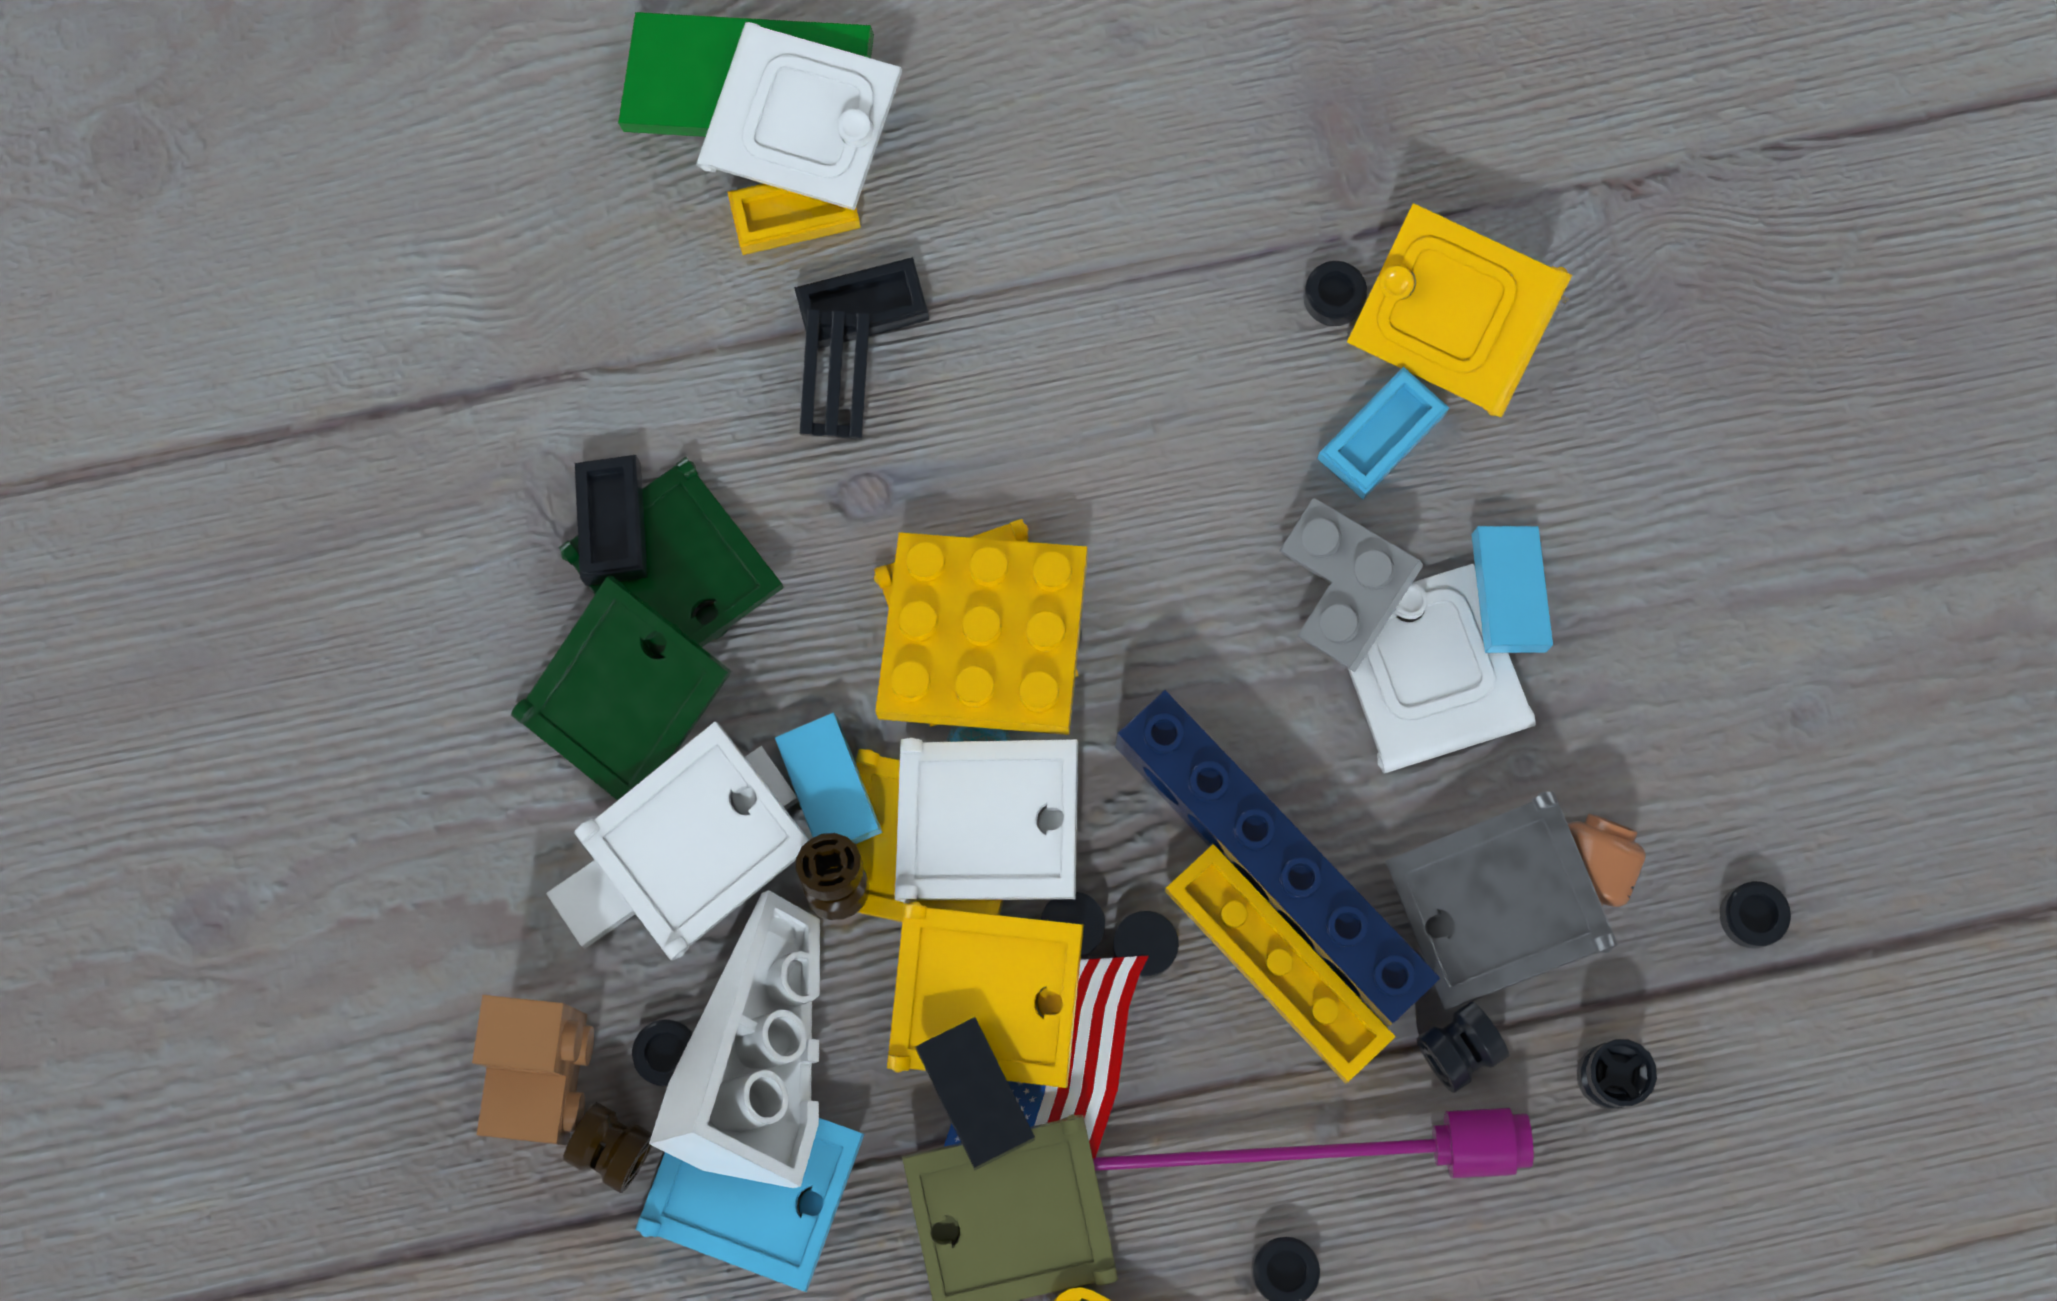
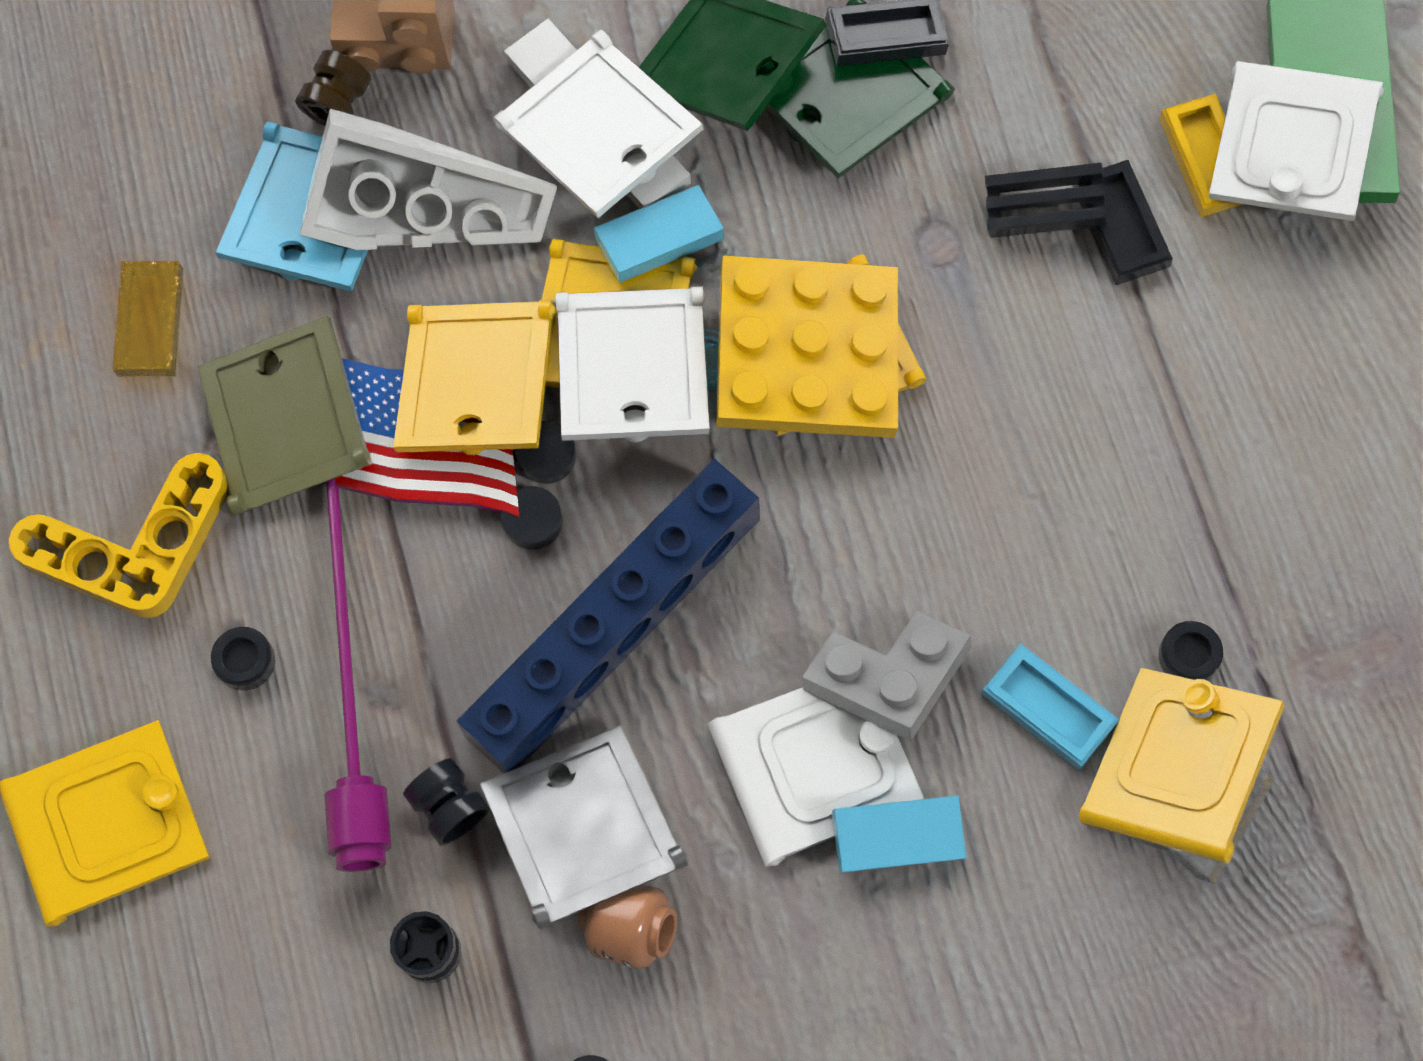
camera: 90 degrees right, 5 degrees down
(659, 1050) = (421, 120): black tile -> none
(835, 891) = (570, 235): dark brown wheel -> none
(975, 1093) = (383, 367): black tile -> none
(1279, 963) = (511, 629): yellow plate -> none

